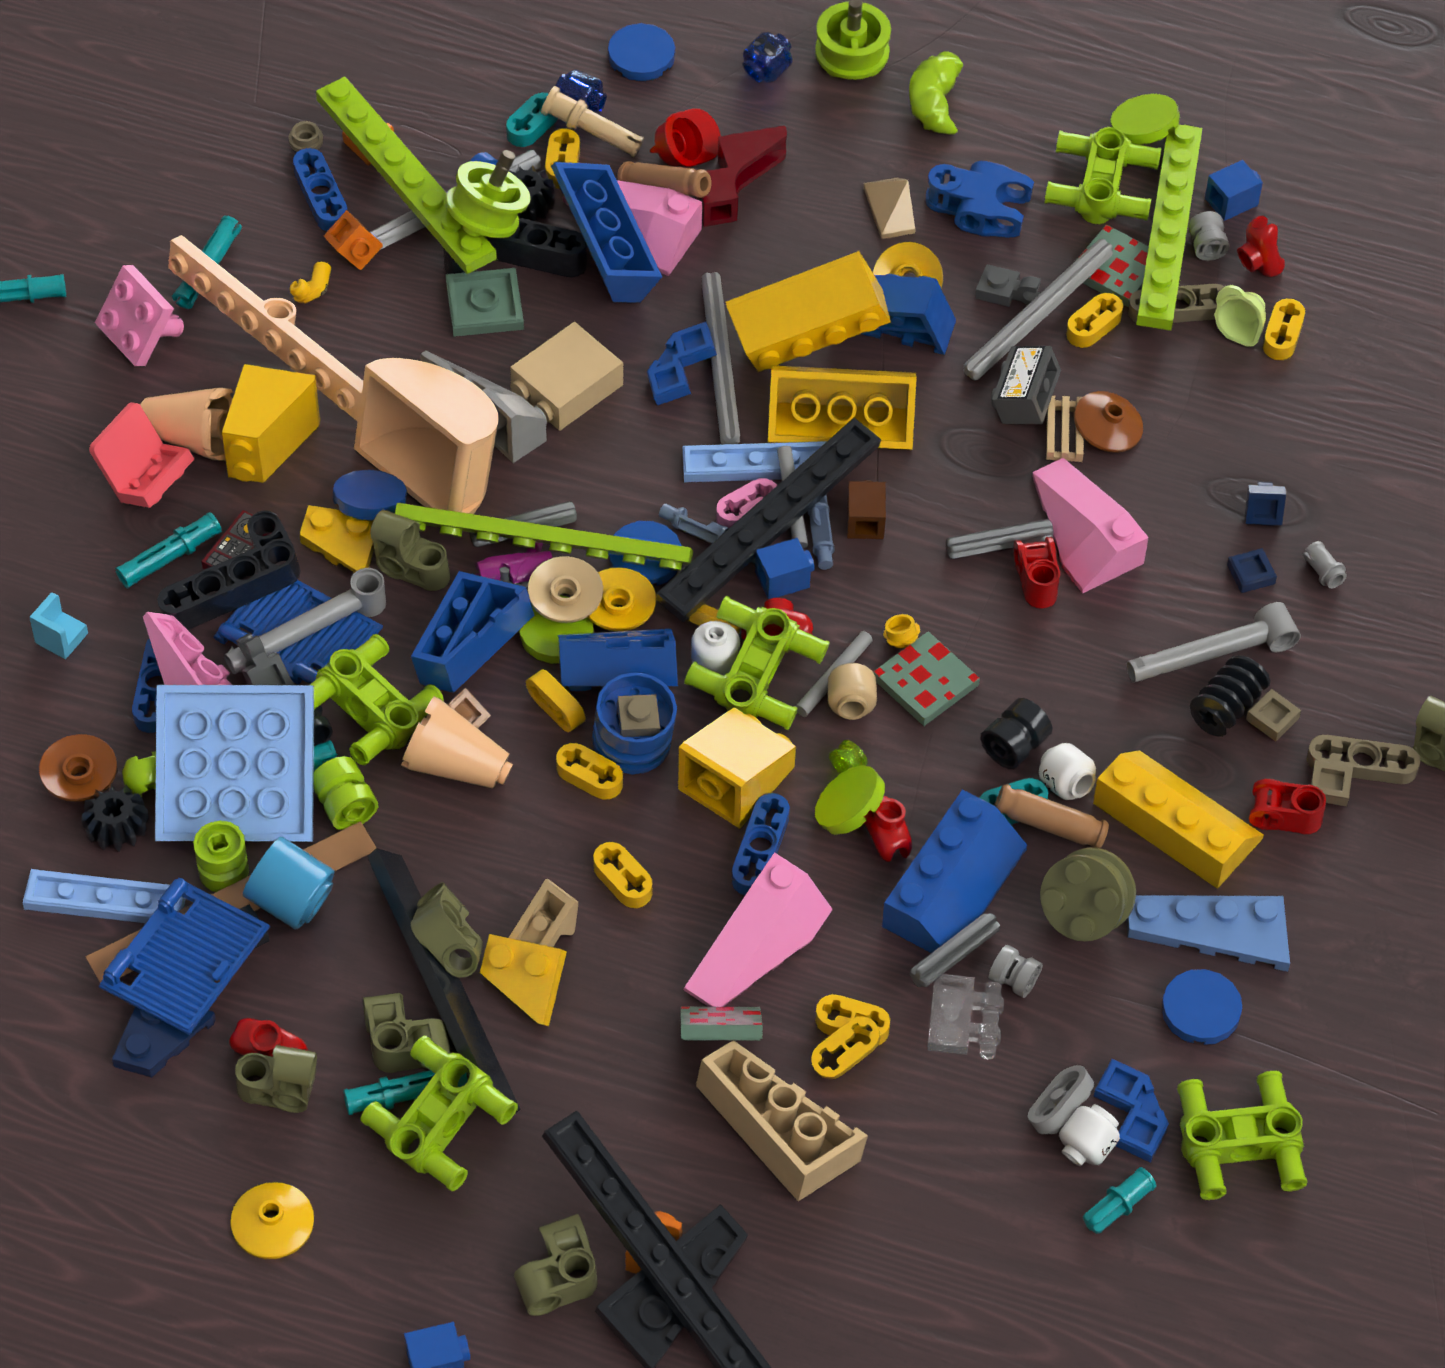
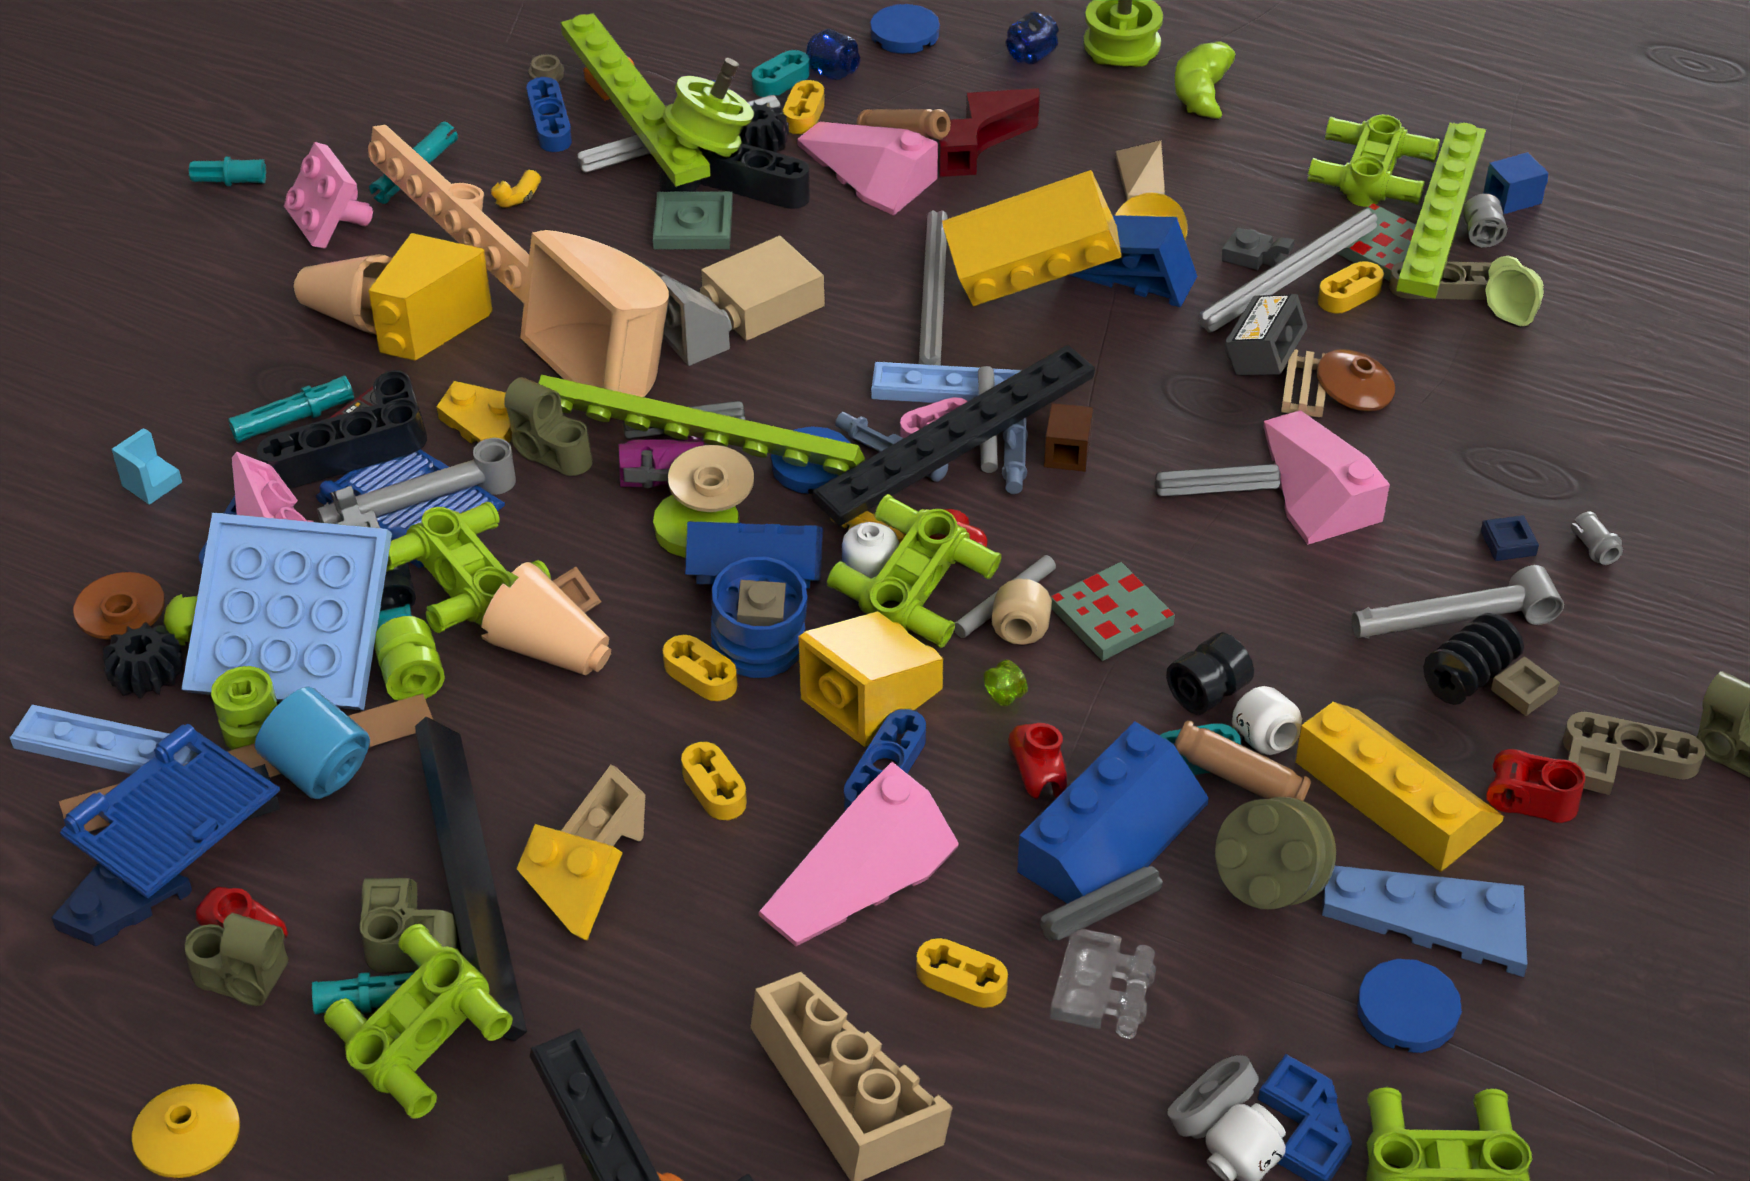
camera: 10 degrees right, 10 degrees down
(136, 458) = (280, 316): coral bracket -> none
(353, 240) = (569, 155): orange bracket -> none
(367, 493) = (504, 369): blue tile -> none
(442, 929) = (481, 809): olive piece -> none
(469, 629) = (593, 507): blue wedge -> none
(555, 700) = (677, 590): yellow beam -> none
(577, 115) = (826, 68): tan pin -> none
(608, 229) = (833, 158): blue slope -> none
(627, 589) = (776, 497): yellow dish -> none
(683, 349) = (874, 299): blue tile -> none
(687, 138) = (933, 90): red piece -> none
(721, 1023) = (792, 954): sand green tile -> none
(783, 568) = (965, 483): blue brick -> none
(818, 402) = (1025, 328): yellow slope -> none
(849, 799) = (996, 720): lime tile -> none
(851, 1055) = (953, 1011): yellow beam -> none
(901, 631) = (1089, 558): yellow plate -> none
(978, 195) = (1236, 167): blue piece -> none
(1015, 971) = (1174, 935): light grey wheel -> none
(1038, 571) = (1257, 515): red piece -> none
(1146, 118) = (1428, 114): lime tile -> none
(1261, 248) = (1542, 232): red piece -> none
(1265, 504) = (1530, 471): dark blue tile -> none
(1288, 330) = (1557, 309): yellow beam -> none

